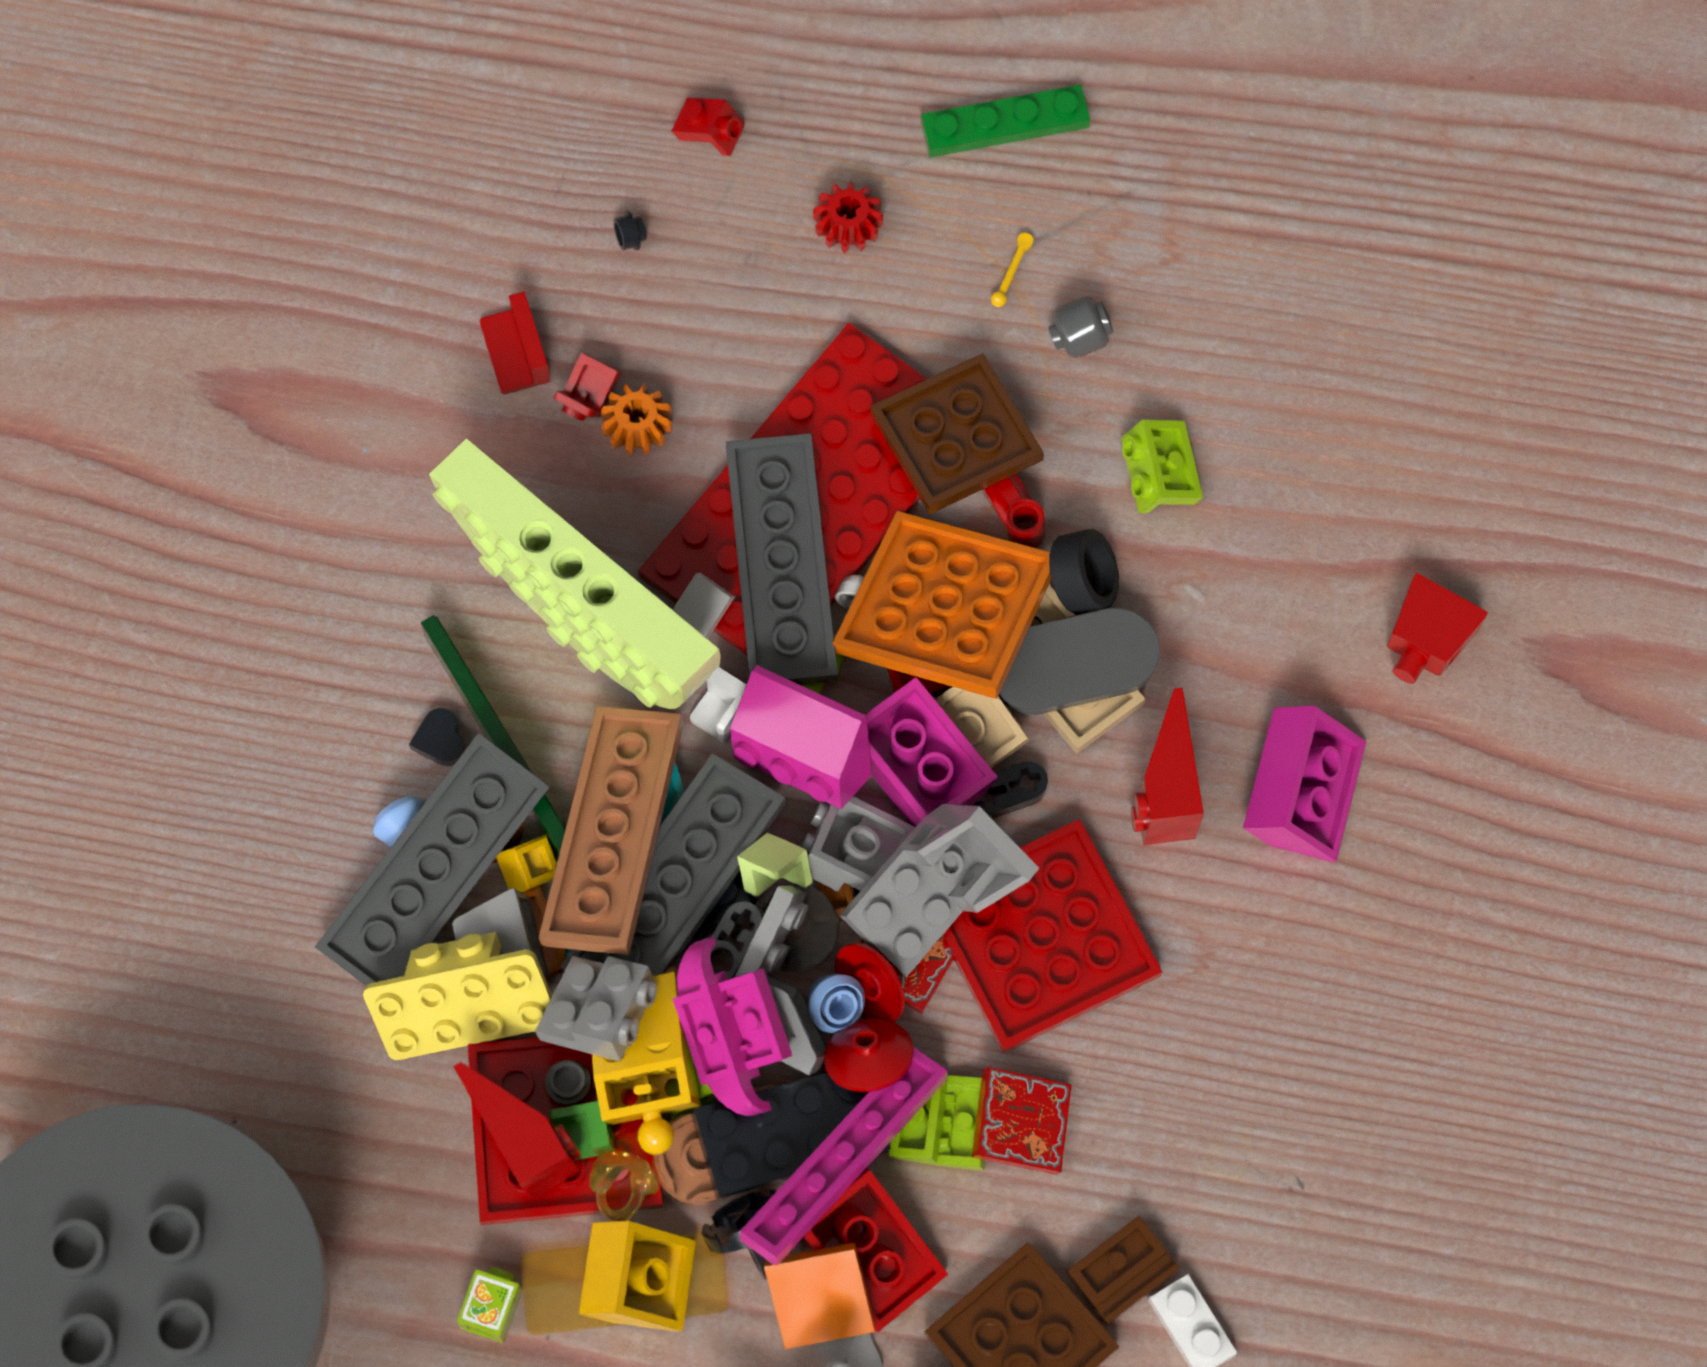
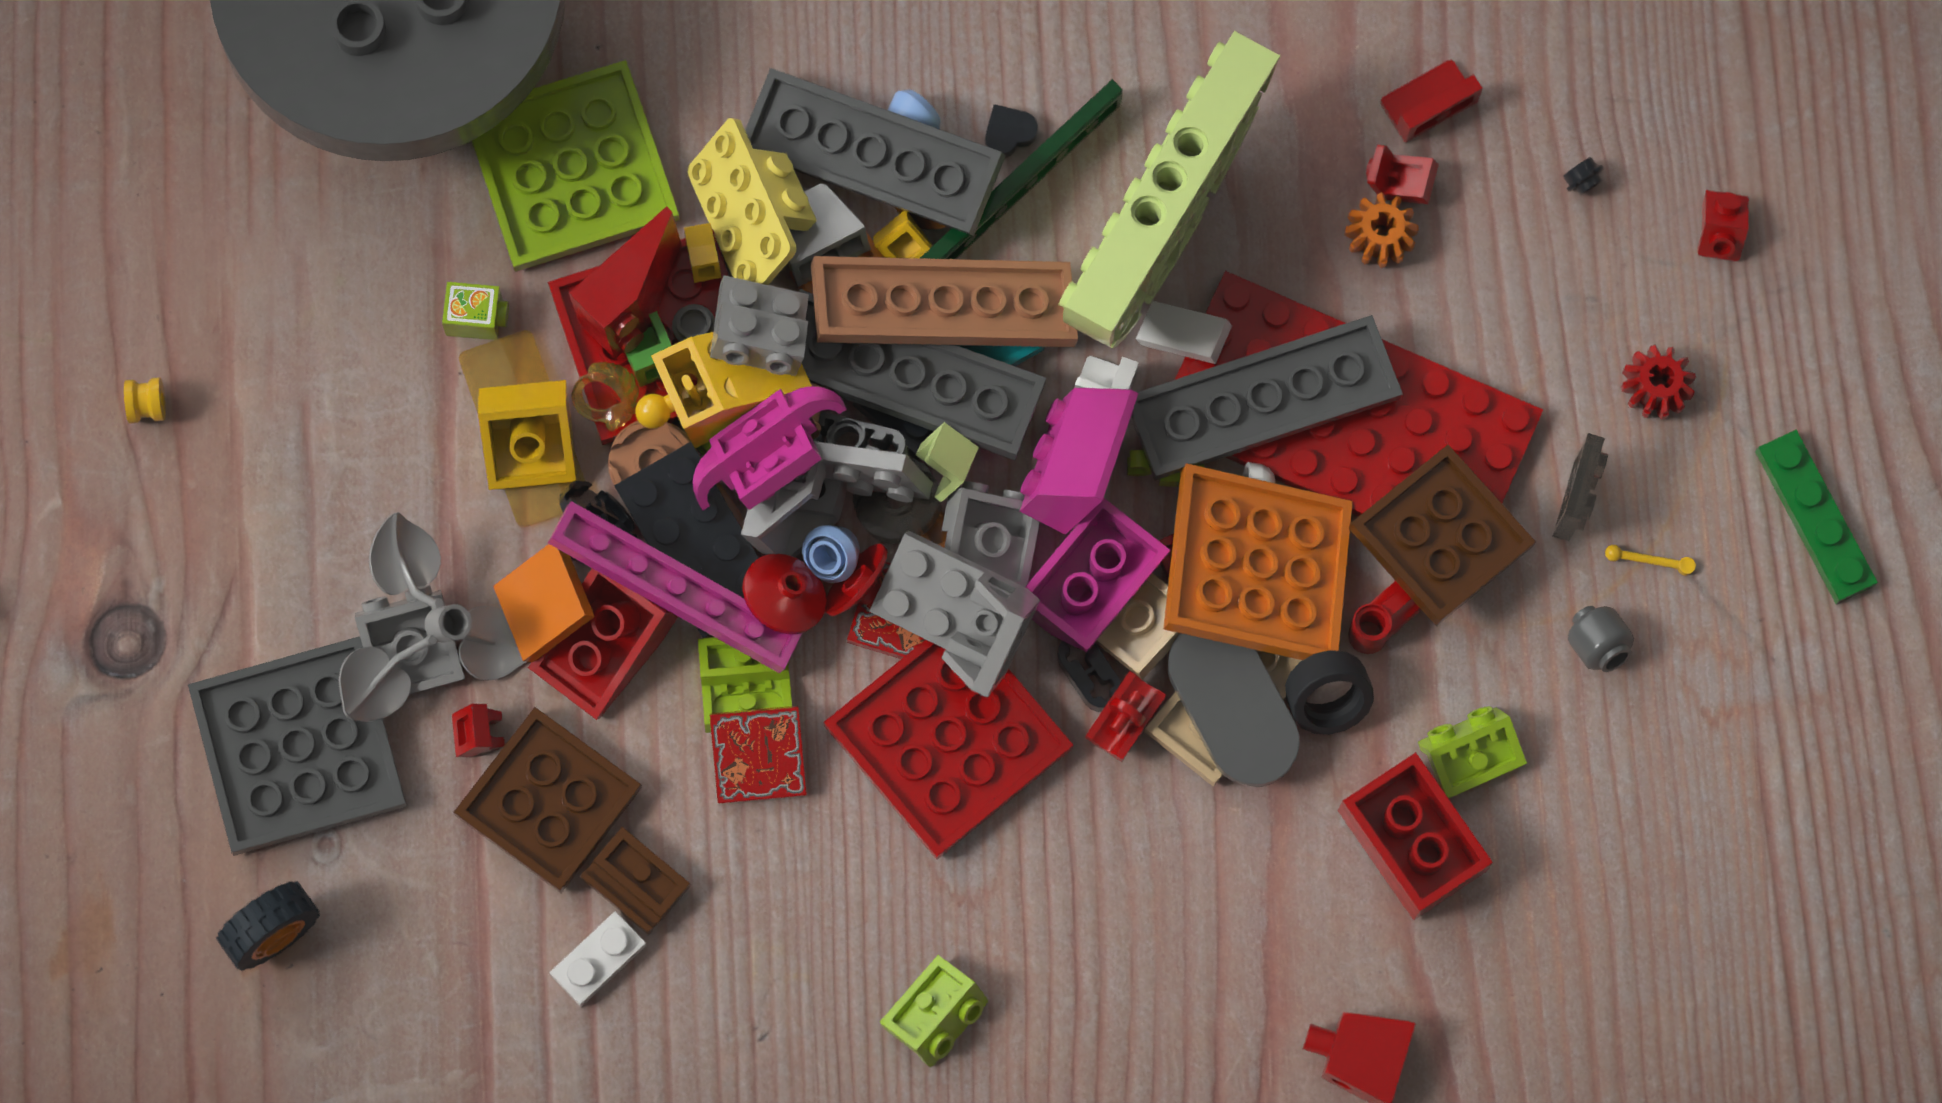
camera: 75 degrees right, 5 degrees up
(368, 1165) = (573, 167): none -> lime plate
(494, 1056) = (702, 252): none -> yellow piece
(937, 305) = (1584, 475): none -> clear smoke plate
(1063, 763) = (1125, 716): none -> red hips
(1170, 794) = (1130, 817): red slope -> none
(1237, 531) = (1414, 836): none -> red brick
(1305, 782) = (1167, 959): dark pink slope -> none
(1311, 1010) = (935, 1011): none -> lime bracket

